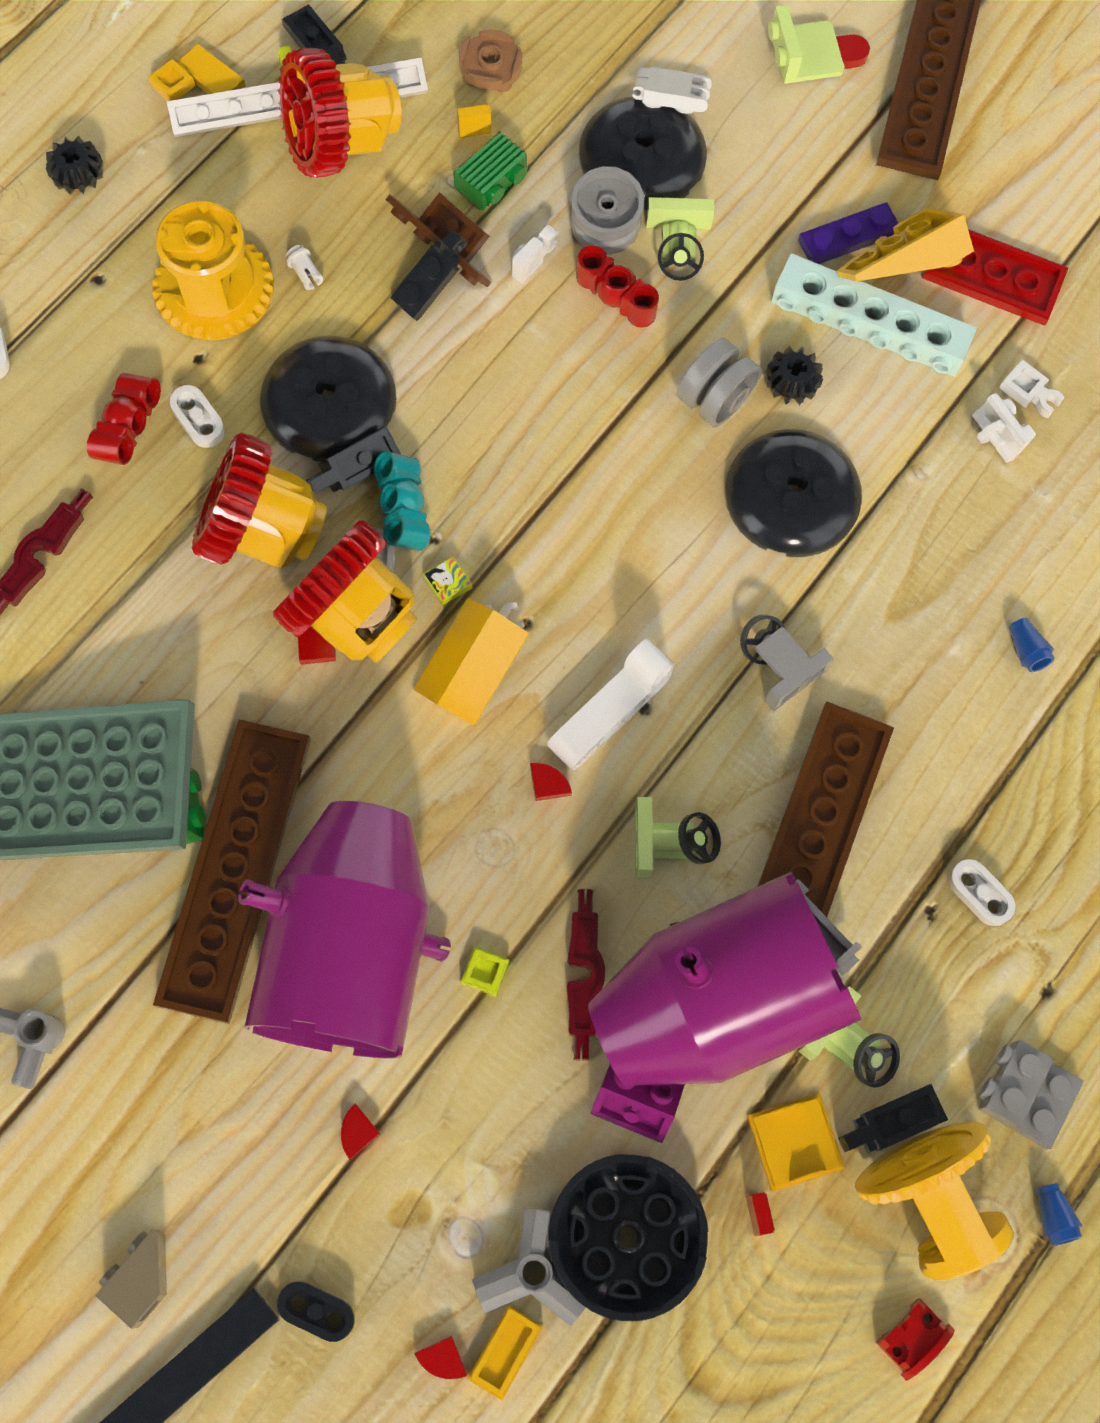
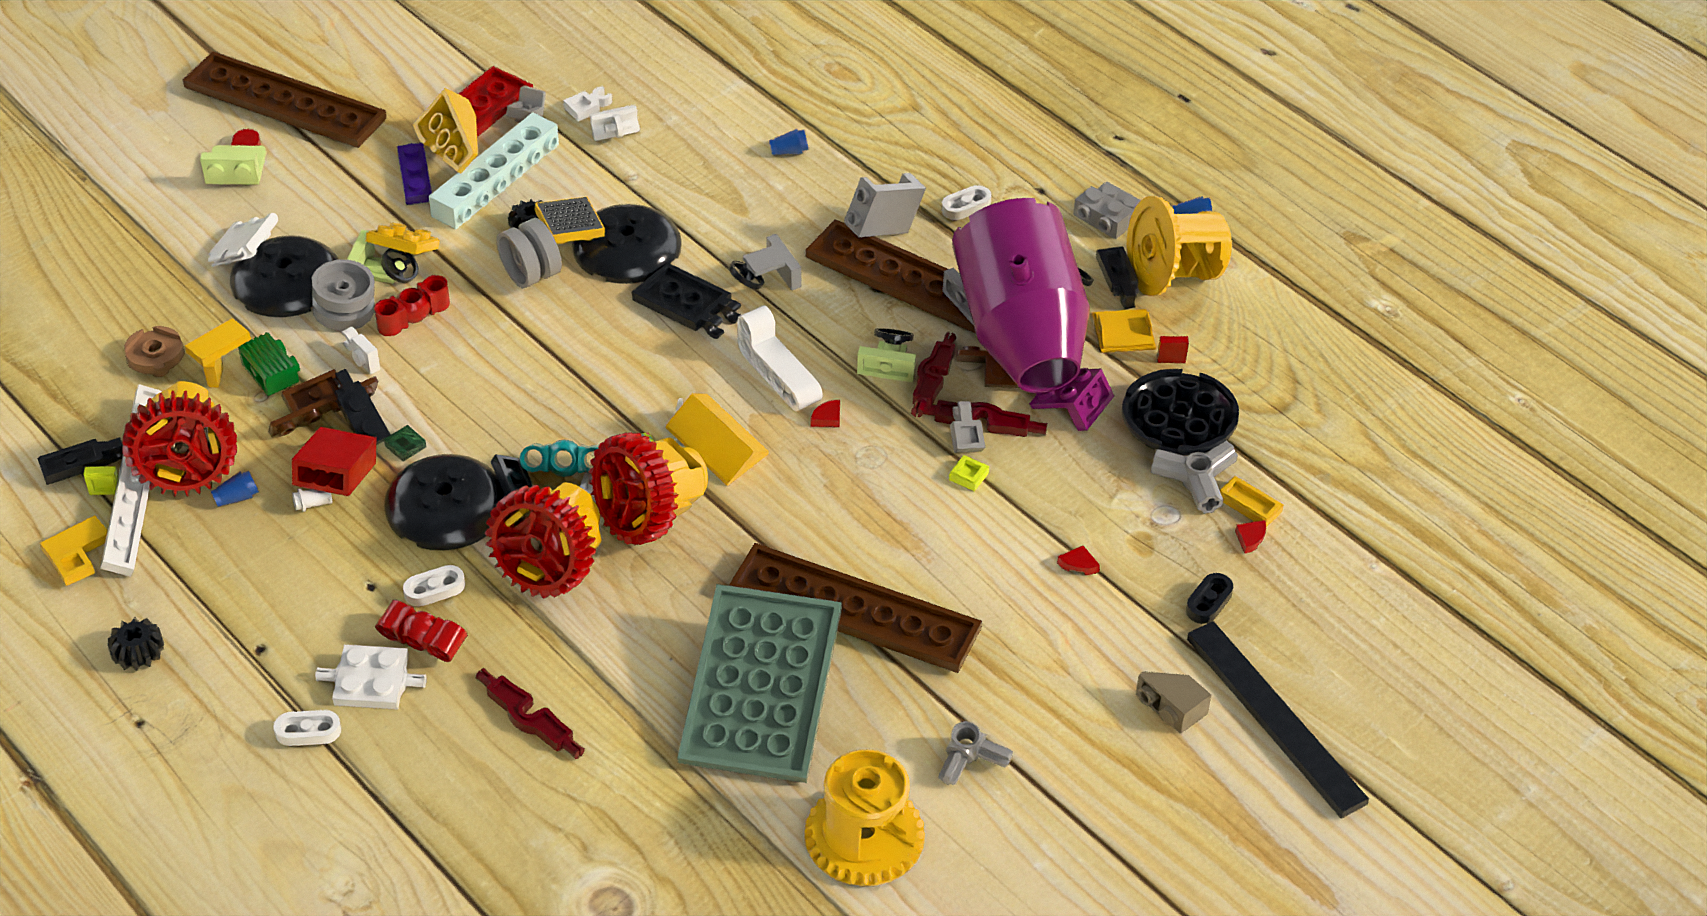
camera: 75 degrees left, 25 degrees down
(66, 389) = (371, 677): none -> white plate
(208, 274) = (303, 540): yellow piece -> none
(304, 195) = (236, 489): none -> blue cone
(314, 648) = (675, 539): red tile -> none
(344, 935) = (937, 511): magenta piece -> none
(347, 270) = (334, 461): none -> red brick
(408, 336) = (405, 443): none -> clear green tile
(490, 108) = (217, 342): none -> yellow tile
(542, 957) = (965, 432): none -> light grey plate
(620, 897) = (929, 374): none -> dark red piece
(707, 578) = (687, 299): none -> black tile
(715, 247) = (400, 239): none -> yellow tile
(783, 412) = (570, 219): none -> tile
(907, 787) = (884, 207): none -> light grey panel
(916, 1340) = (1268, 291): red piece -> none
(998, 323) = (529, 101): none -> light grey bracket

